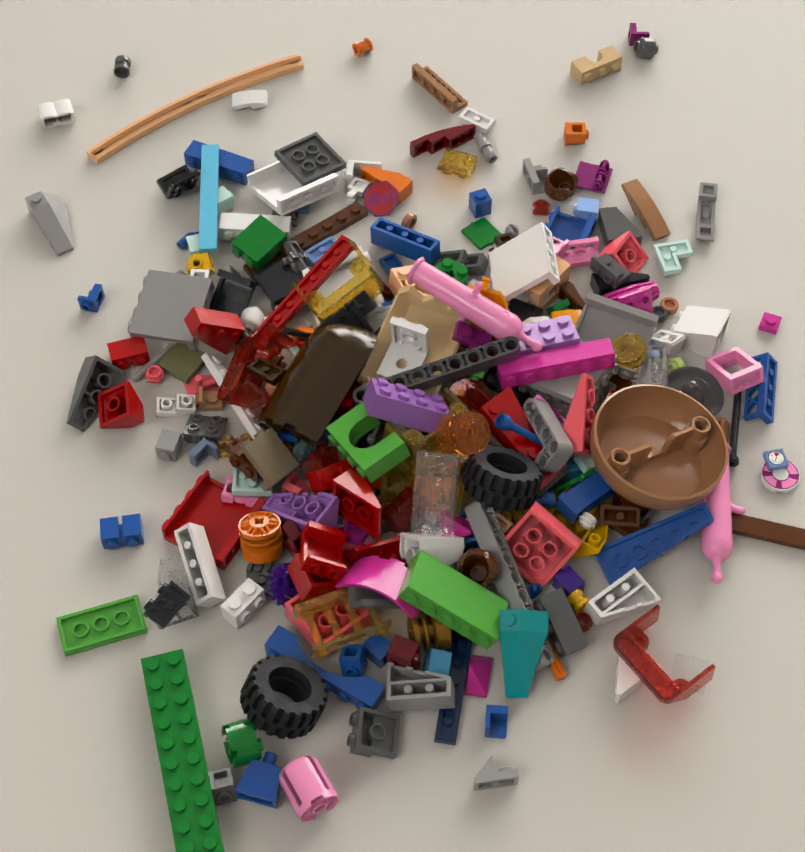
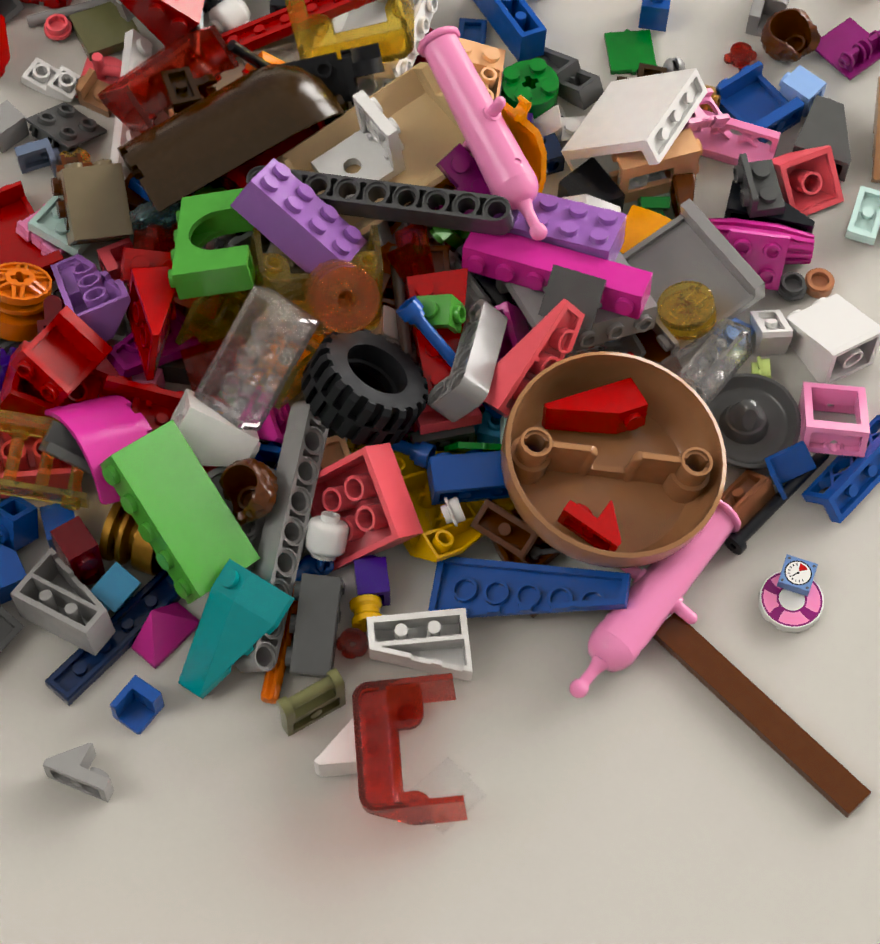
camera: 30 degrees right, 5 degrees up
(517, 413) = (443, 311): none -> bright green bracket
(532, 571) = (326, 536): none -> white head
(573, 367) = (576, 287): none -> dark grey piece
(590, 663) = (312, 702): none -> olive plate
(631, 424) = (599, 410): none -> red slope
(674, 486) = (599, 532): none -> red slope
(730, 405) = (789, 464): none -> blue bracket

